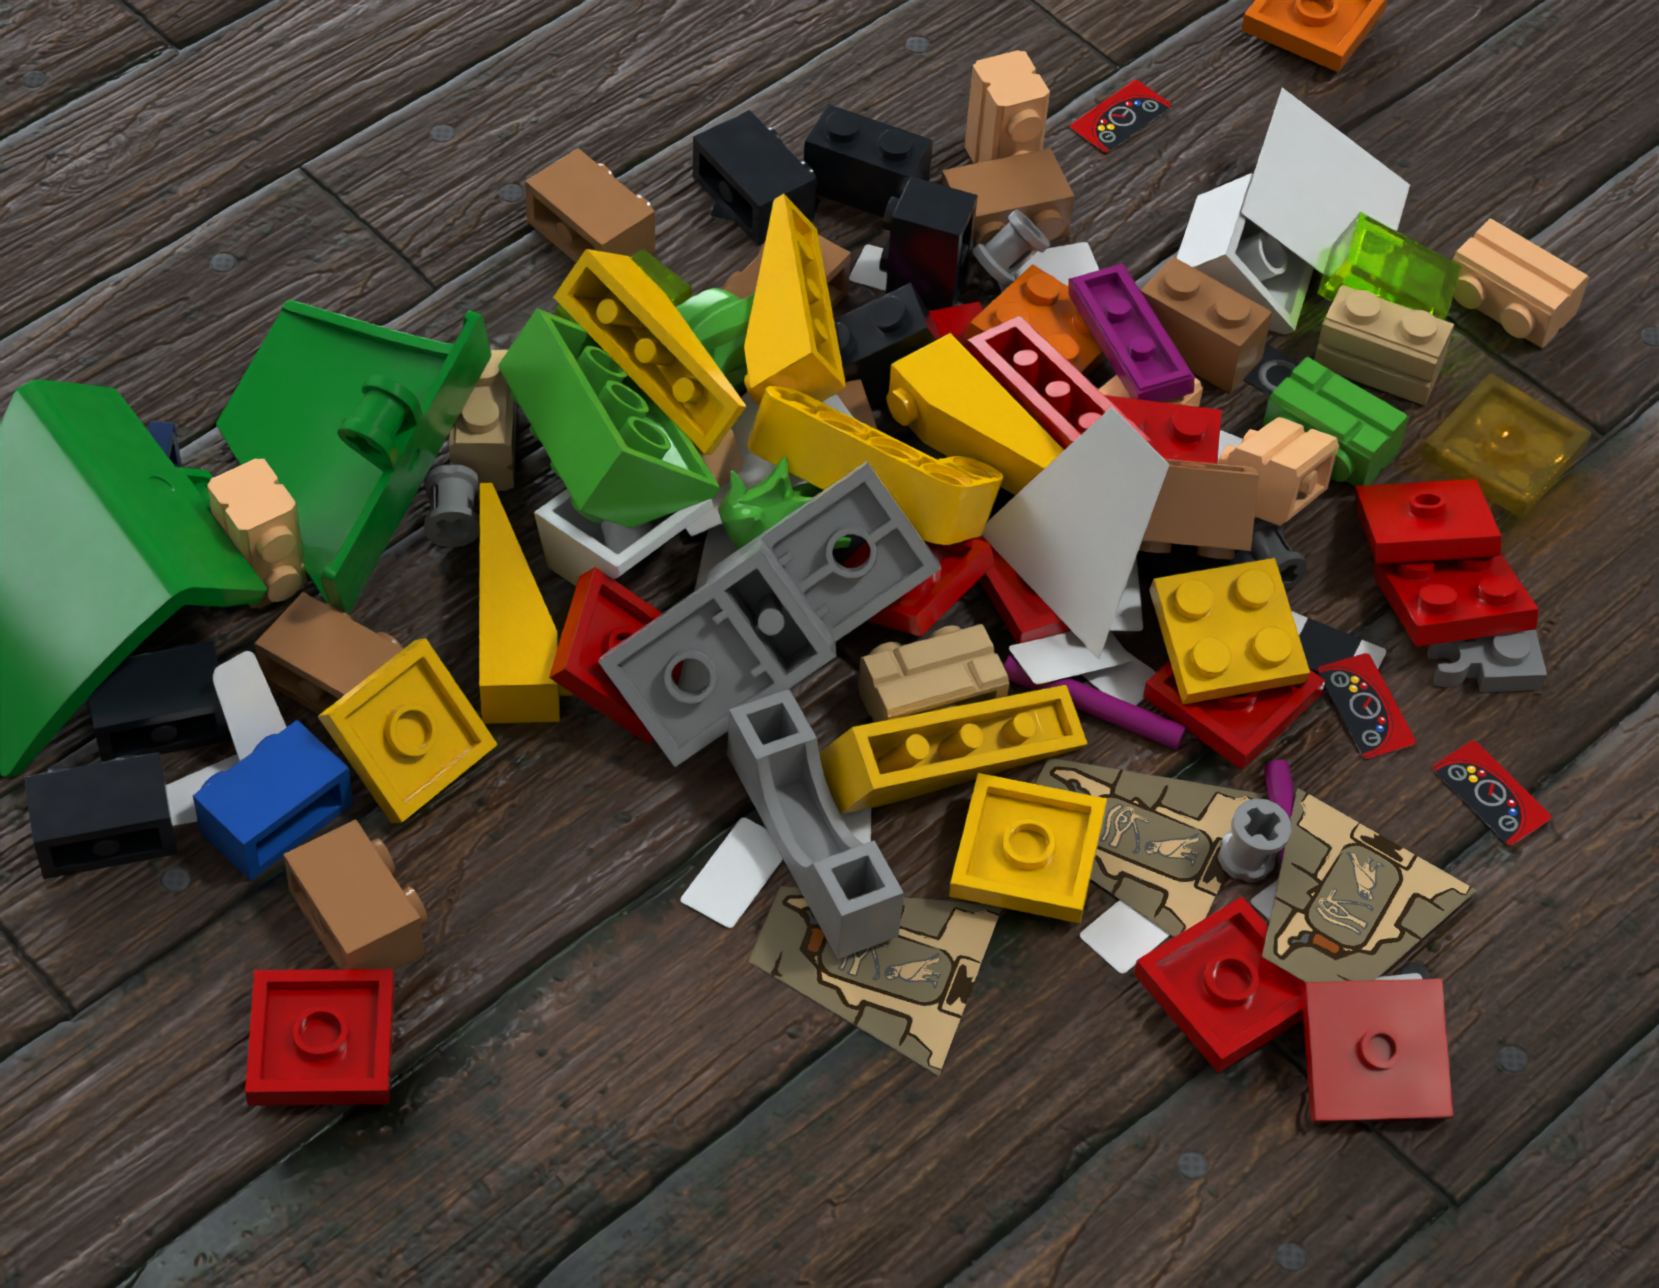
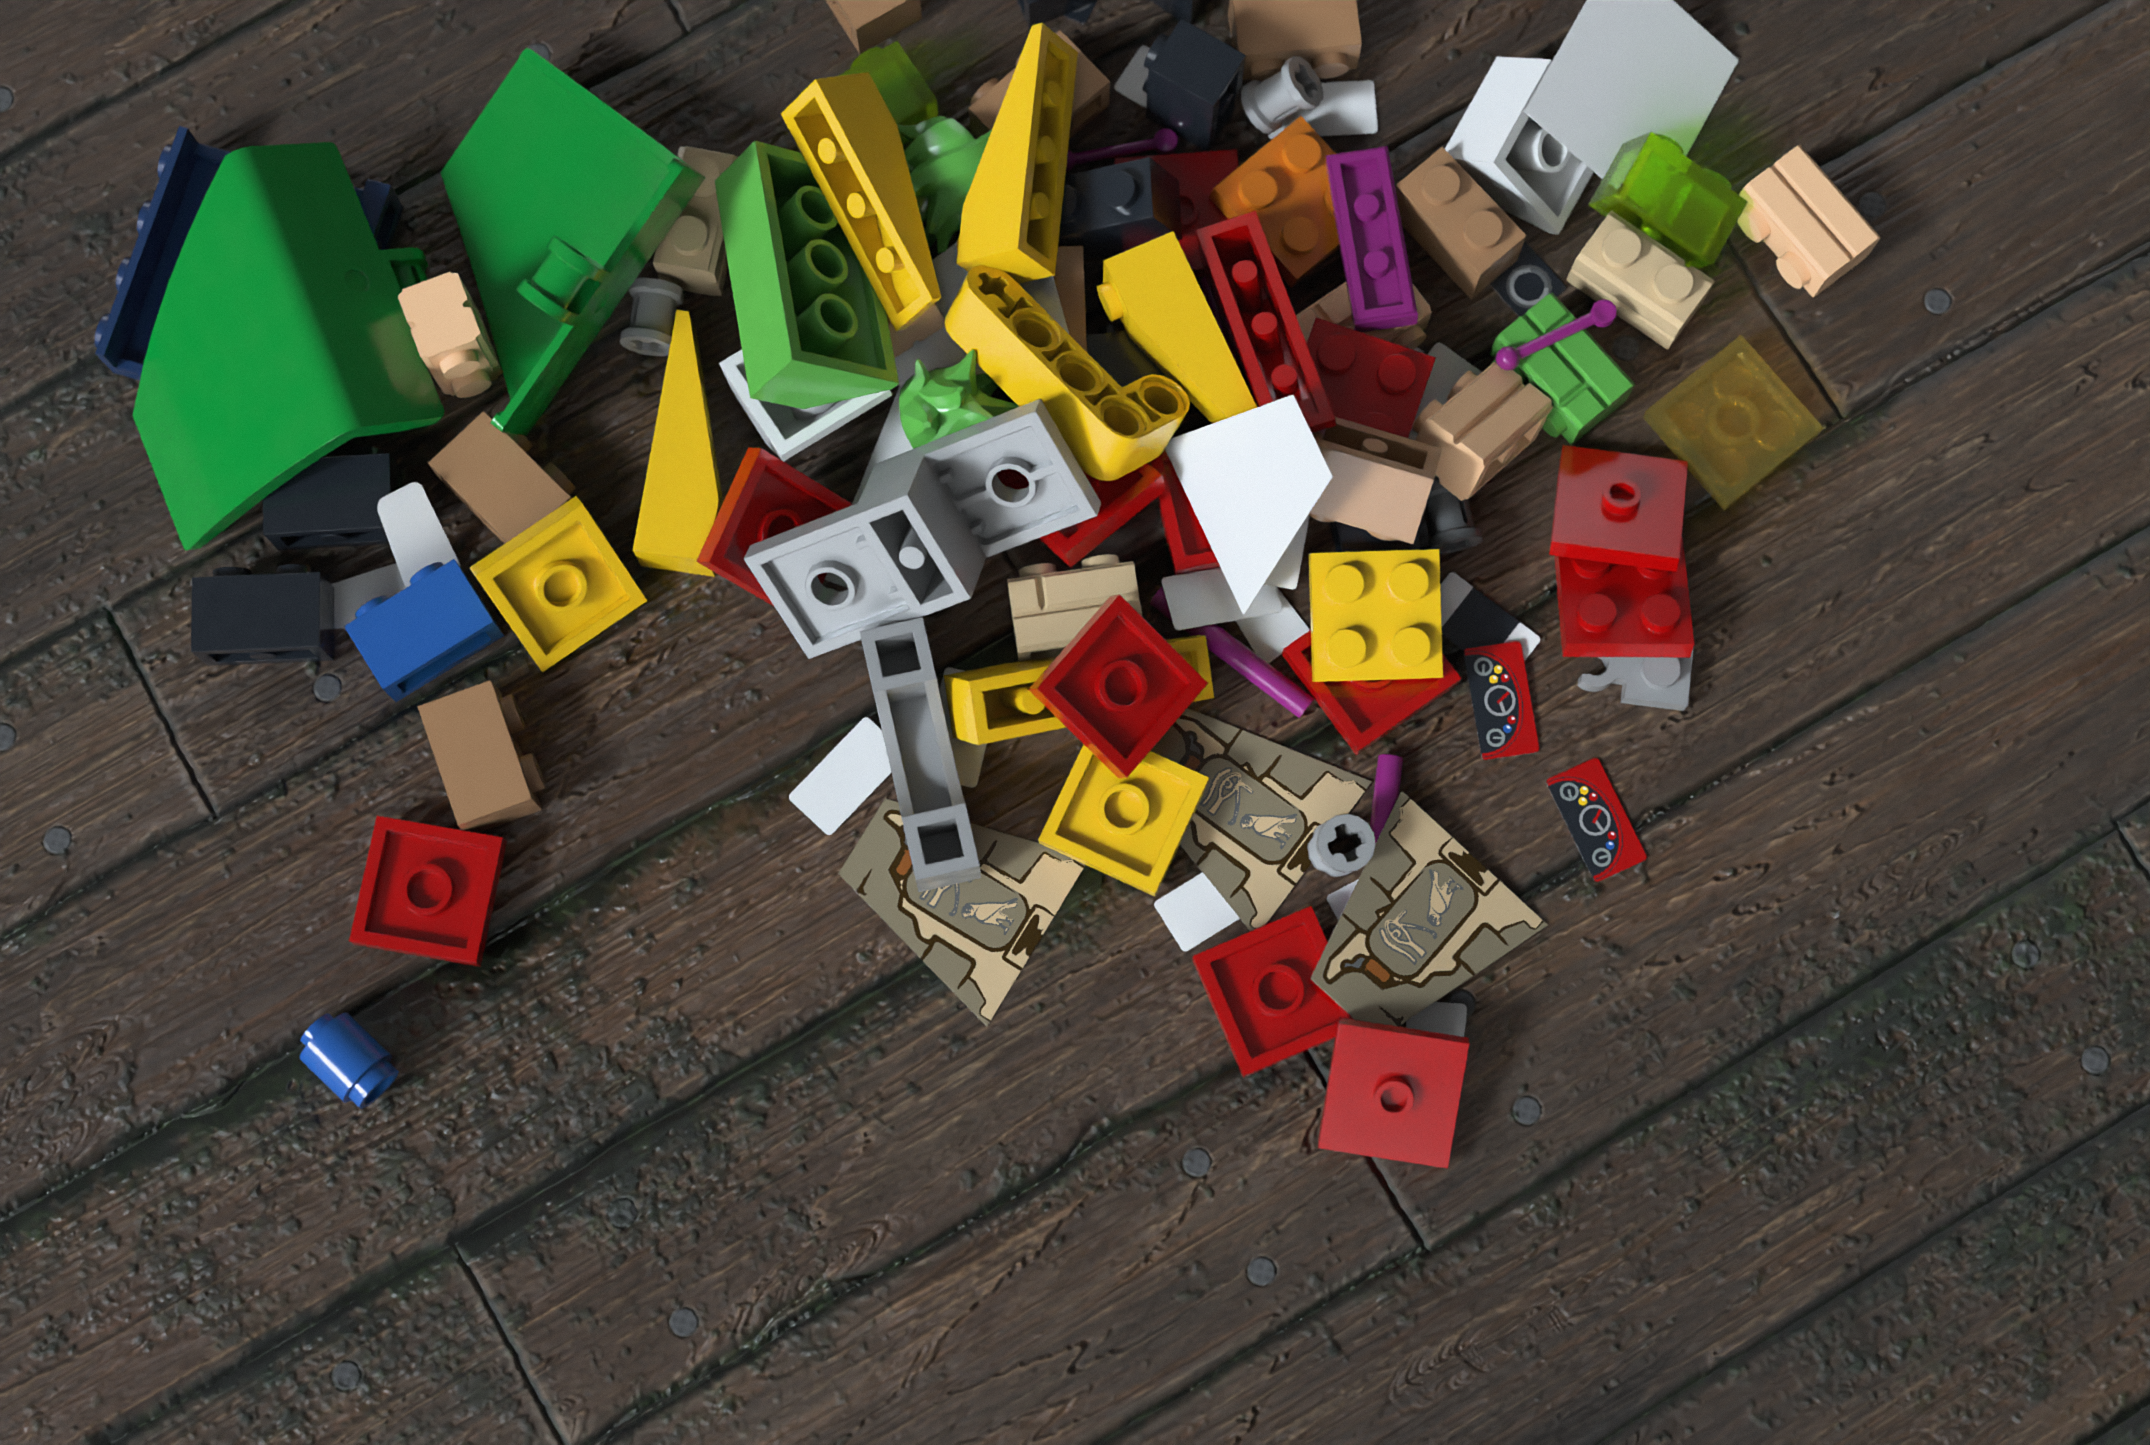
camera: 15 degrees right, 25 degrees up
(263, 1209) = (347, 1059): none -> blue brick
(999, 720) = (1118, 686): none -> red plate
(1360, 364) = (1601, 315): none -> magenta hinge

